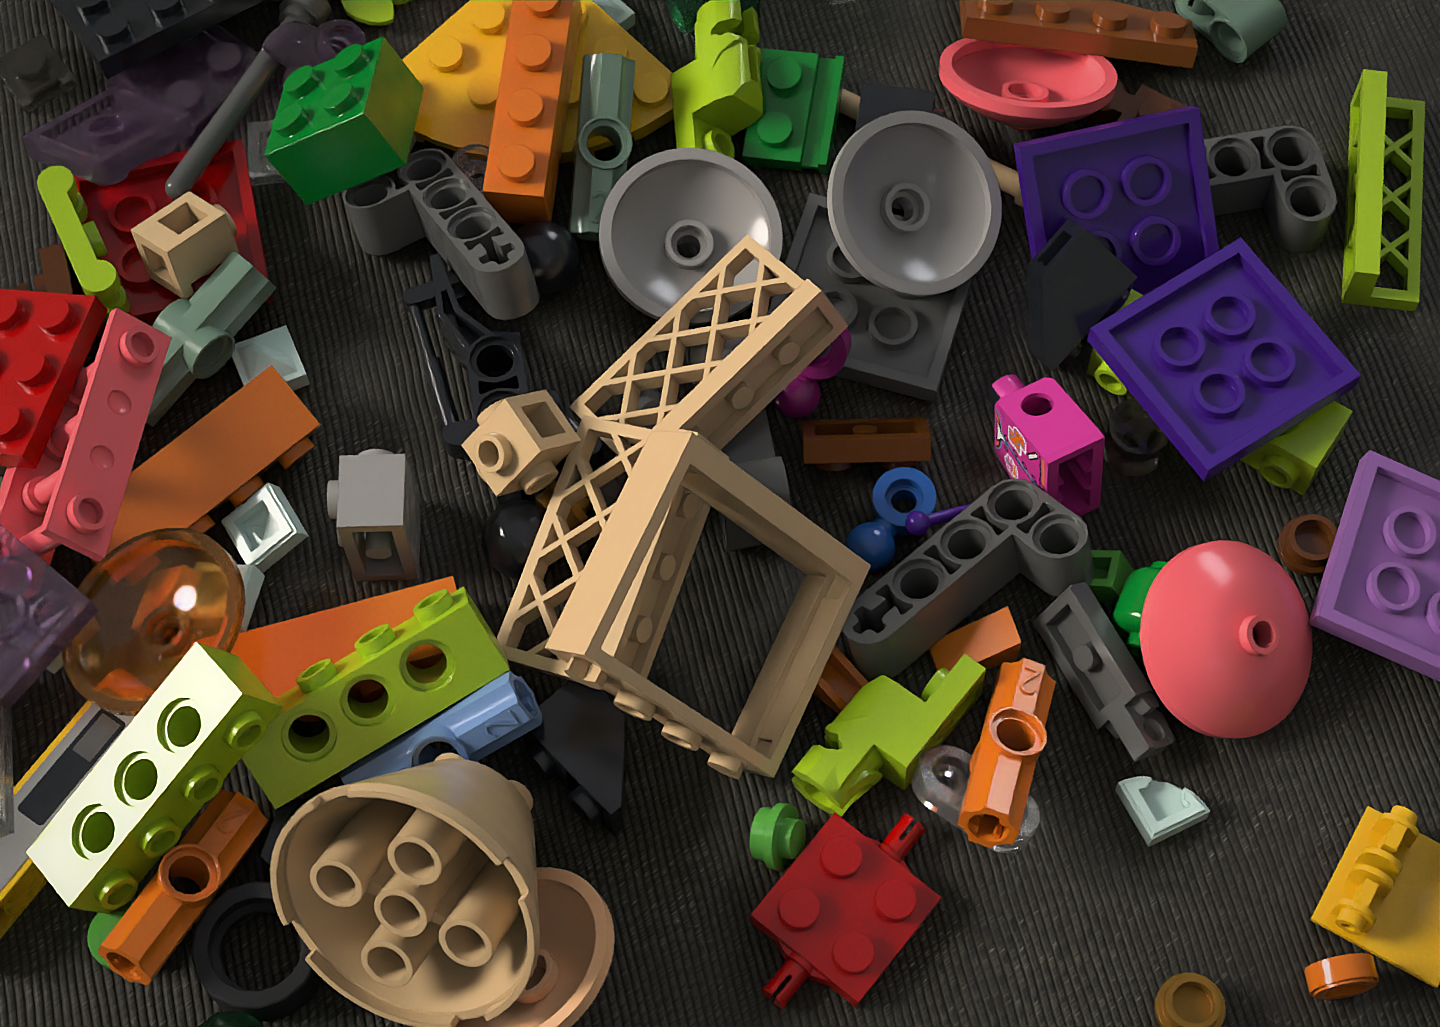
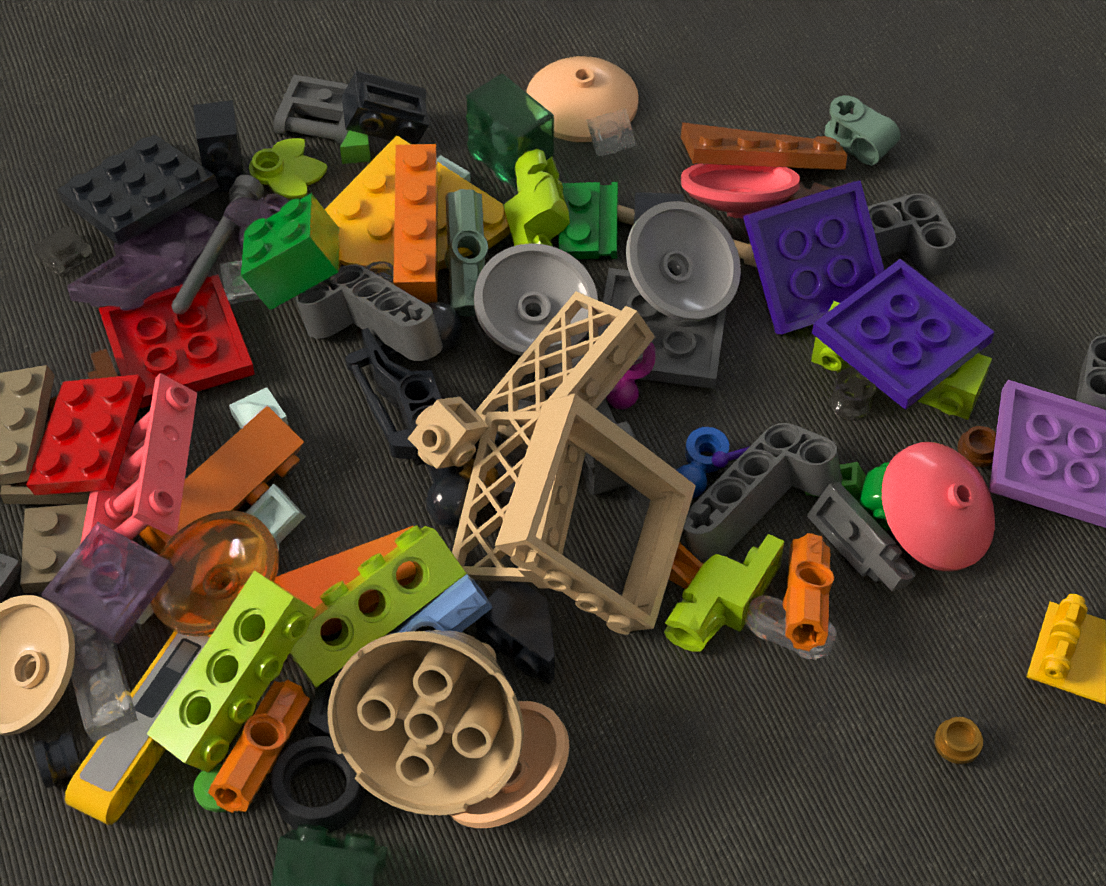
camera: 10 degrees left, 10 degrees down
(81, 240) = (120, 345): lime plate -> none
(185, 242) = (192, 338): tan brick -> none
(206, 328) = (218, 386): sand green piece -> none
(376, 515) = (353, 494): light grey brick -> none
(777, 836) = (662, 666): bright green plate -> none
(844, 910) = (715, 709): red plate -> none
(889, 441) = (692, 414): reddish brown plate -> none
(986, 641) = (783, 525): orange piece -> none
(1048, 441) = (797, 396): dark pink torso -> none
(1069, 291) = (793, 304): black slope -> none
(1160, 807) = (913, 621): light aqua tile -> none
(1341, 976) = (1055, 706): orange tile -> none
(1369, 198) = (974, 237): lime fence -> none

